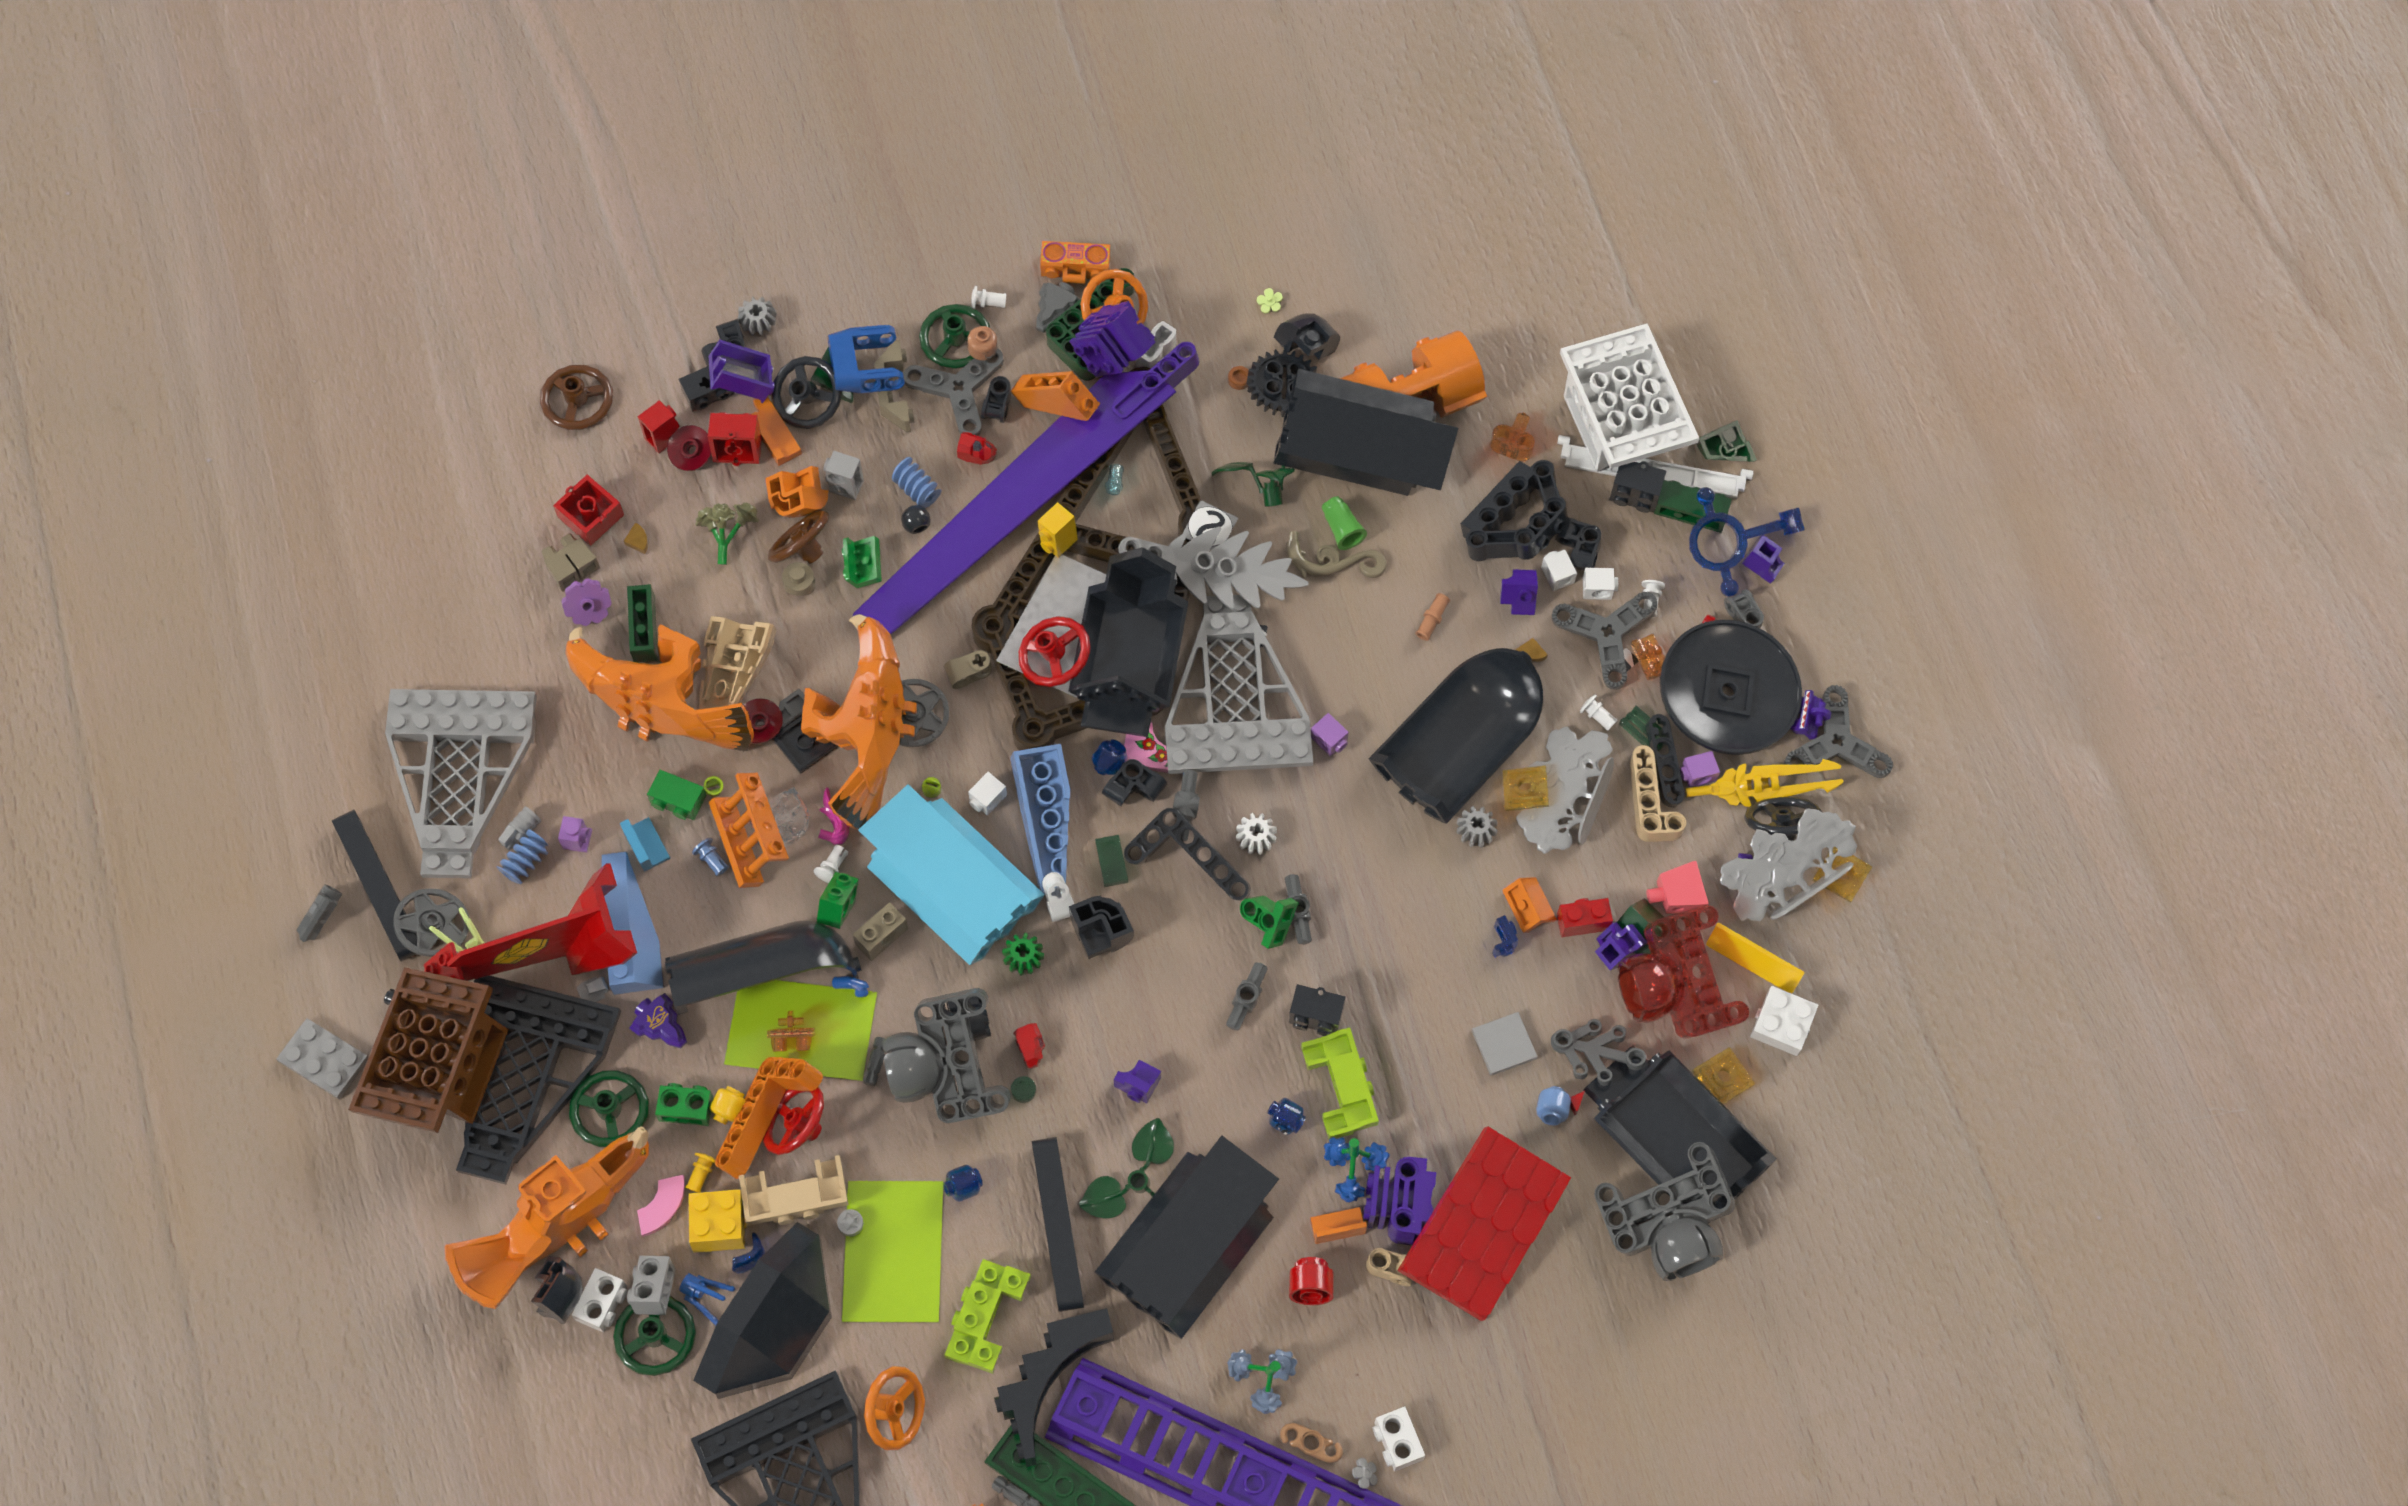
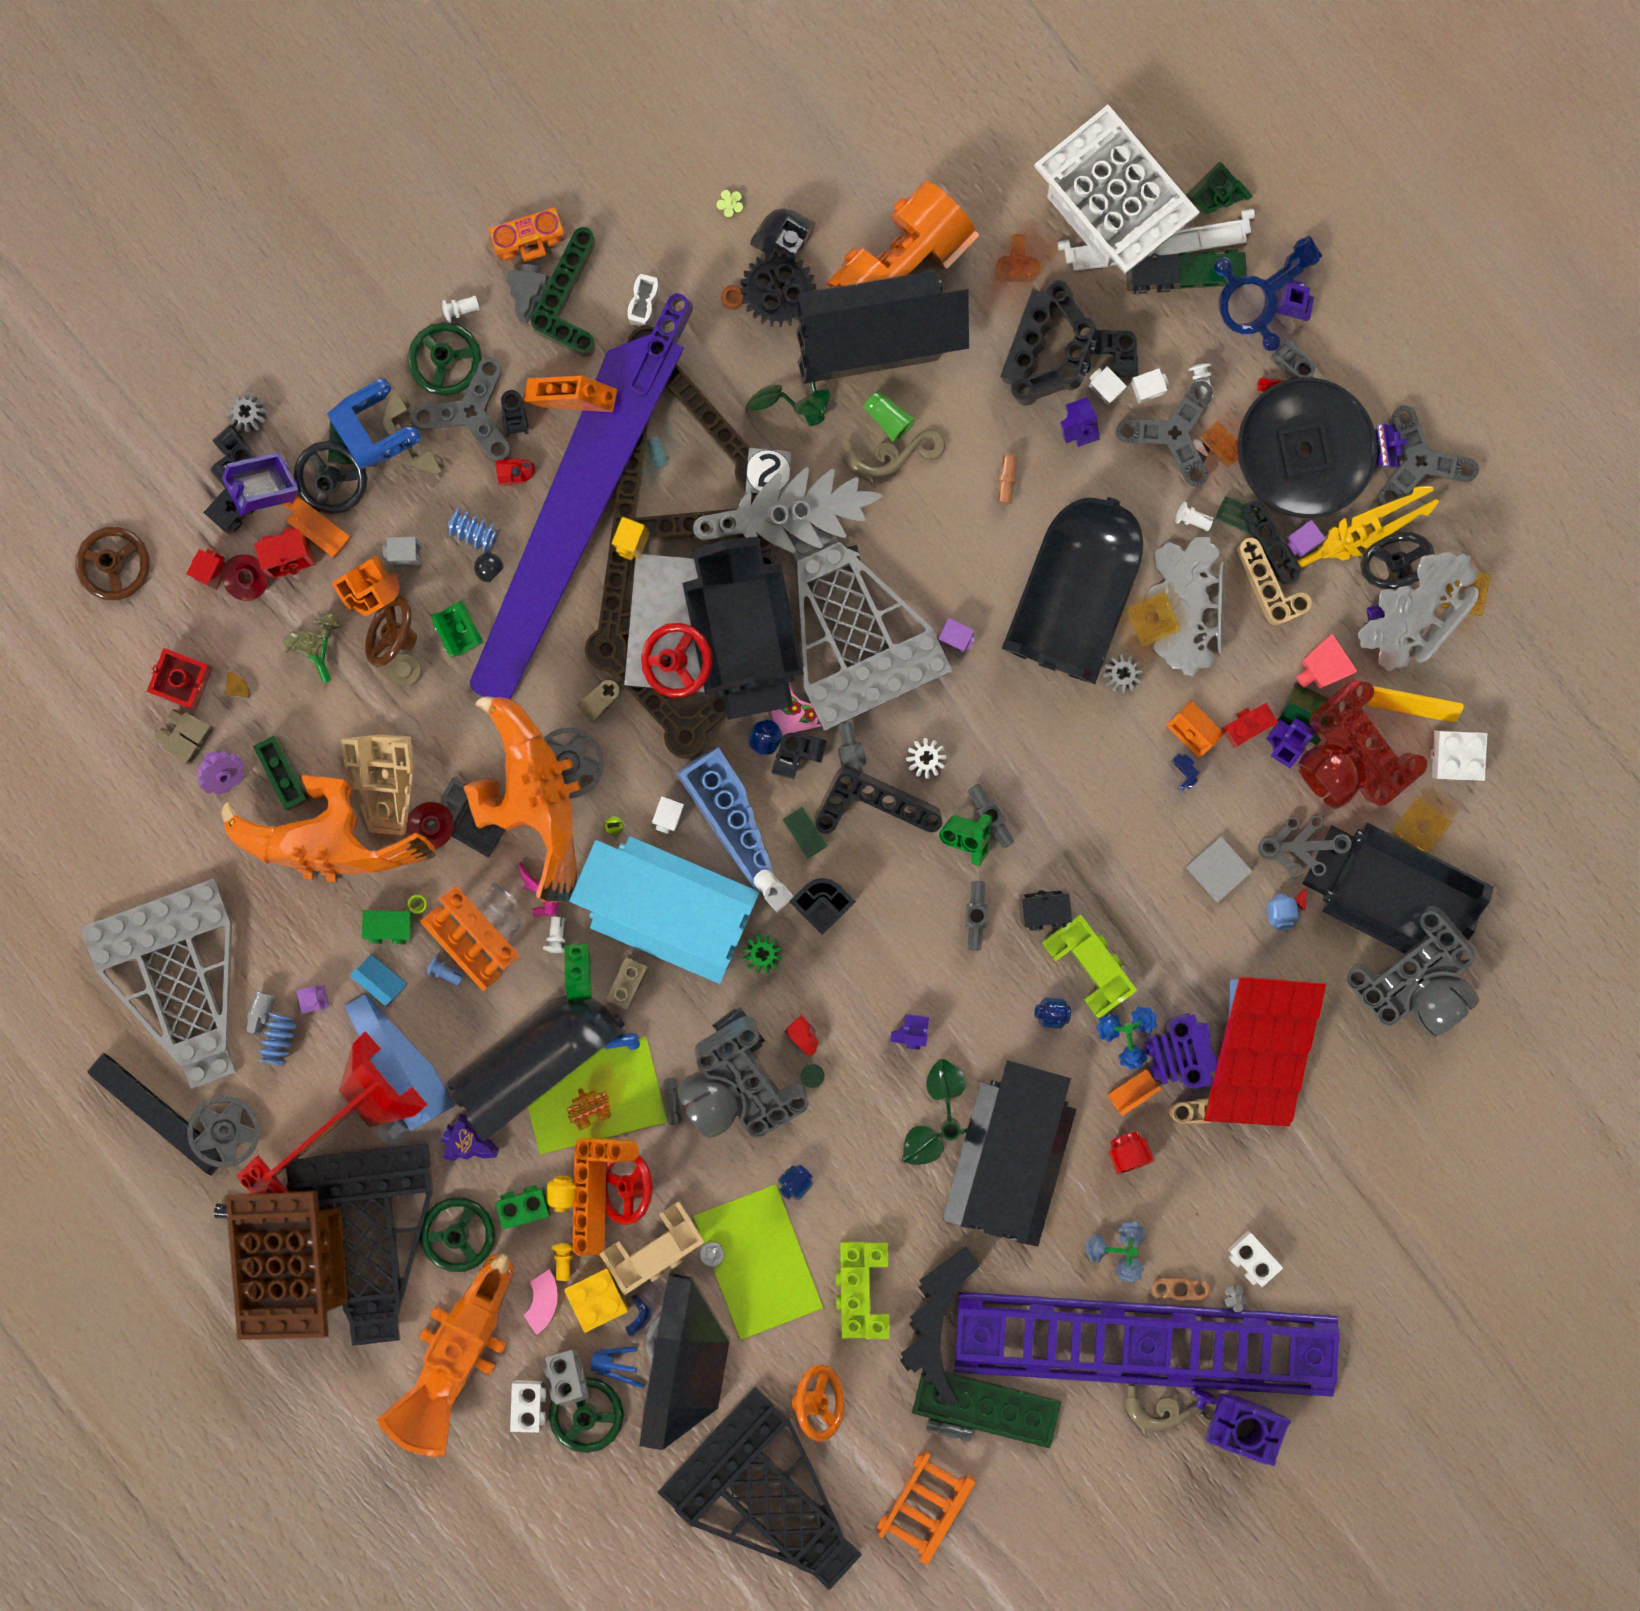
camera: 20 degrees left, 20 degrees up
(318, 913) = (118, 1160): dark grey rock -> none
(322, 1058) = (185, 1288): light grey plate -> none
(476, 940) = (272, 1137): yellowish green plant -> none
(559, 1289) = (491, 1414): black brick -> none
(982, 343) = (476, 362): nougat head -> none
(1057, 1224) = (891, 1185): black beam -> none
(1111, 339) = (602, 317): dark purple piece -> none
(1117, 296) = (587, 272): orange piece -> none
(1534, 650) = (1109, 478): pearl gold tile -> none

